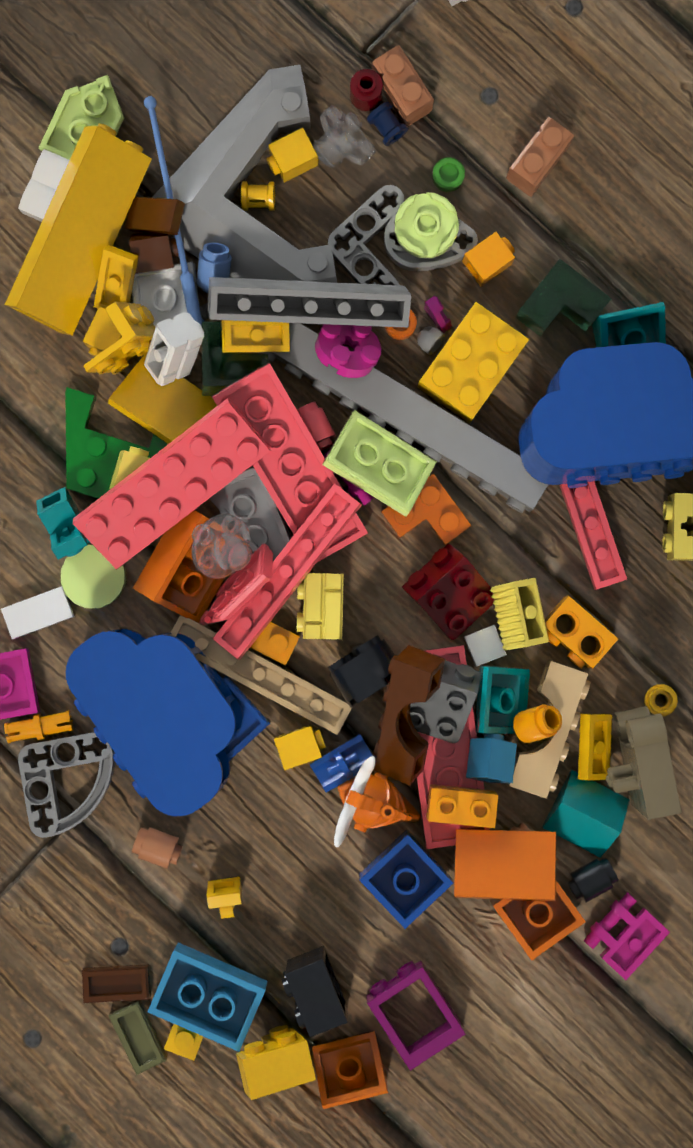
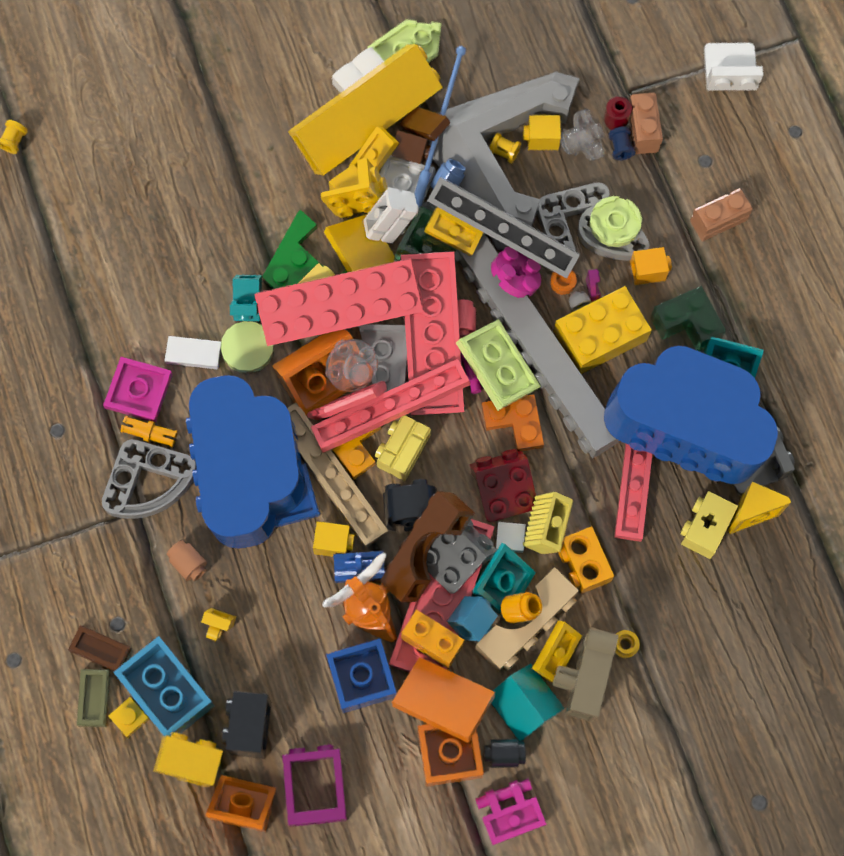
camera: 25 degrees right, 15 degrees down
(448, 174) = (649, 198): bright green tile -> none

